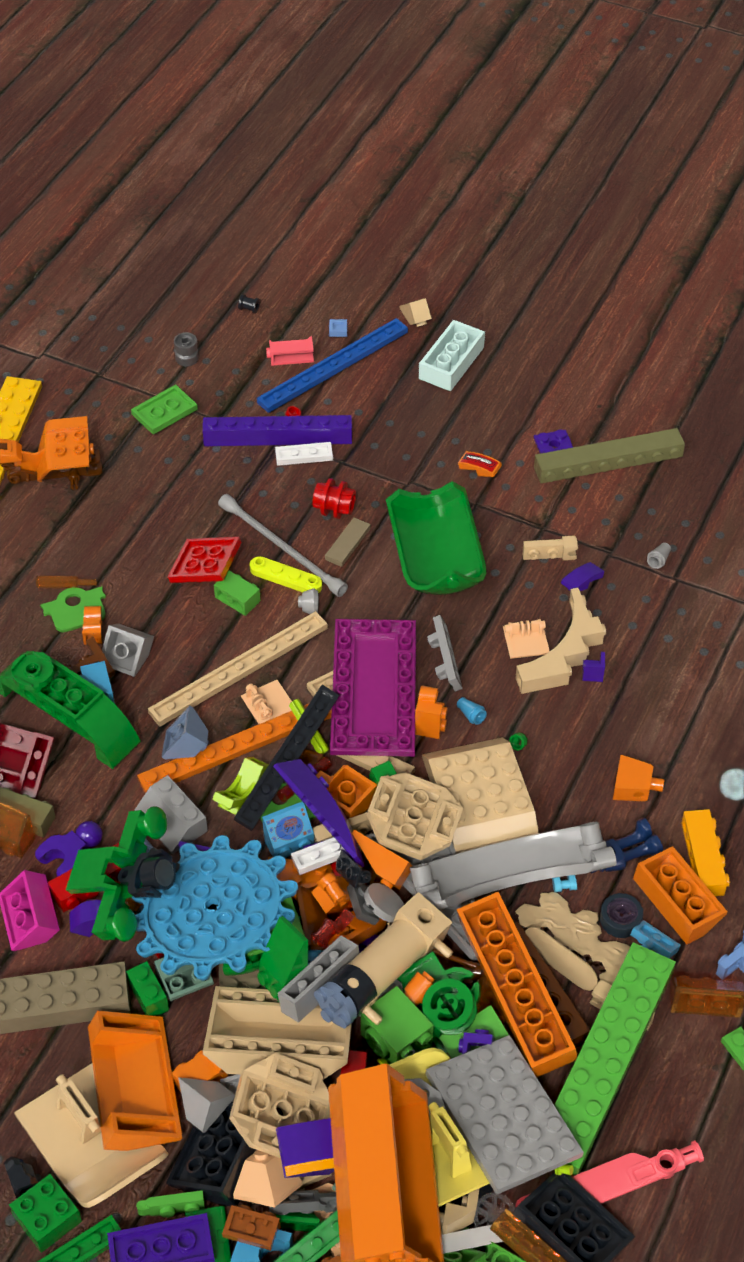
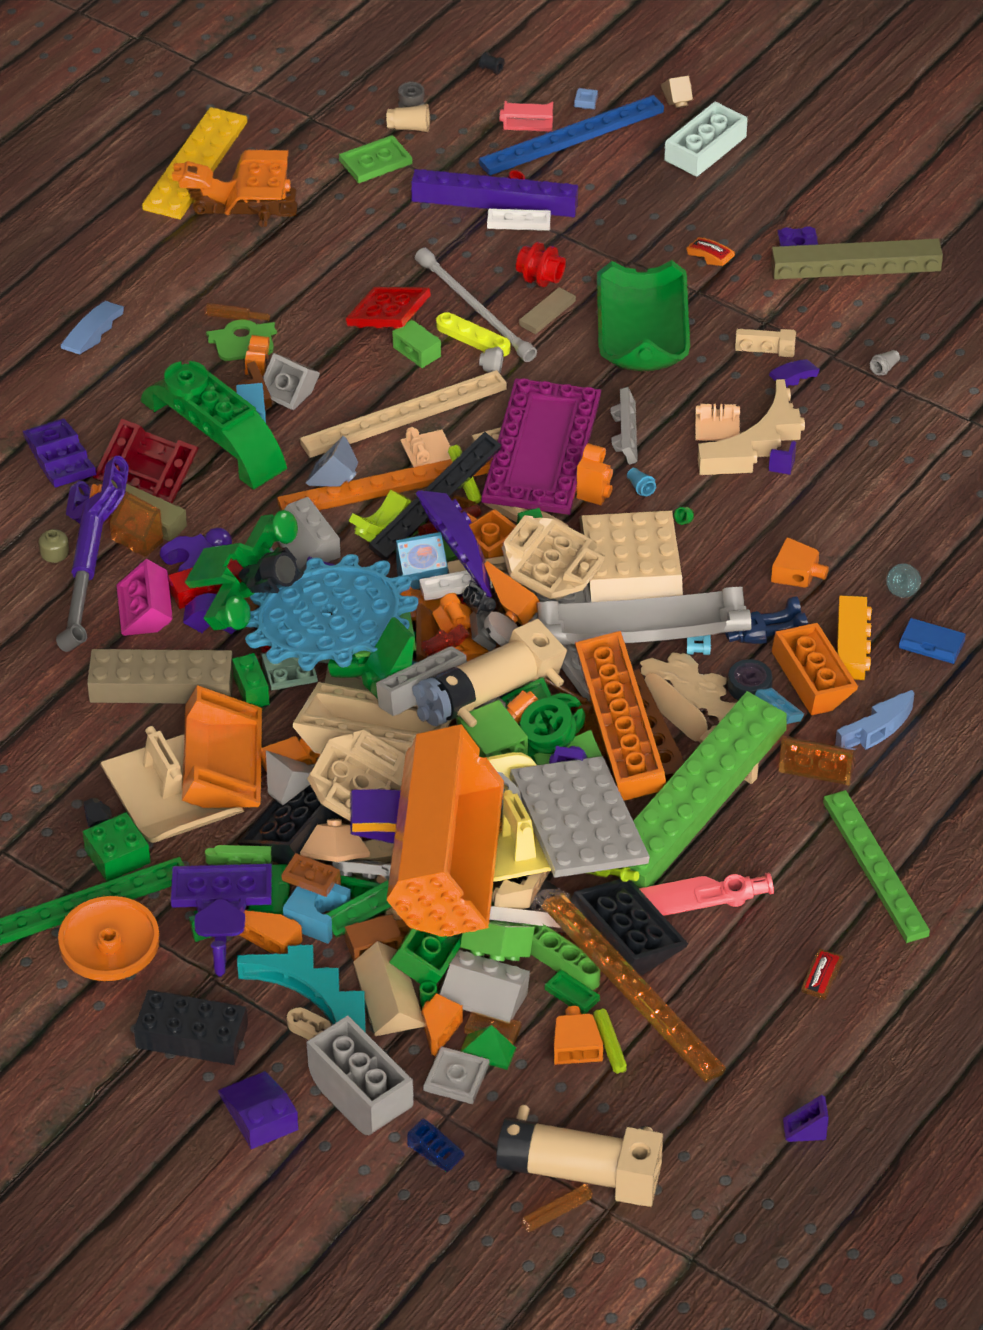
camera: 10 degrees right, 5 degrees down
(187, 366) = (409, 118): none -> tan plant

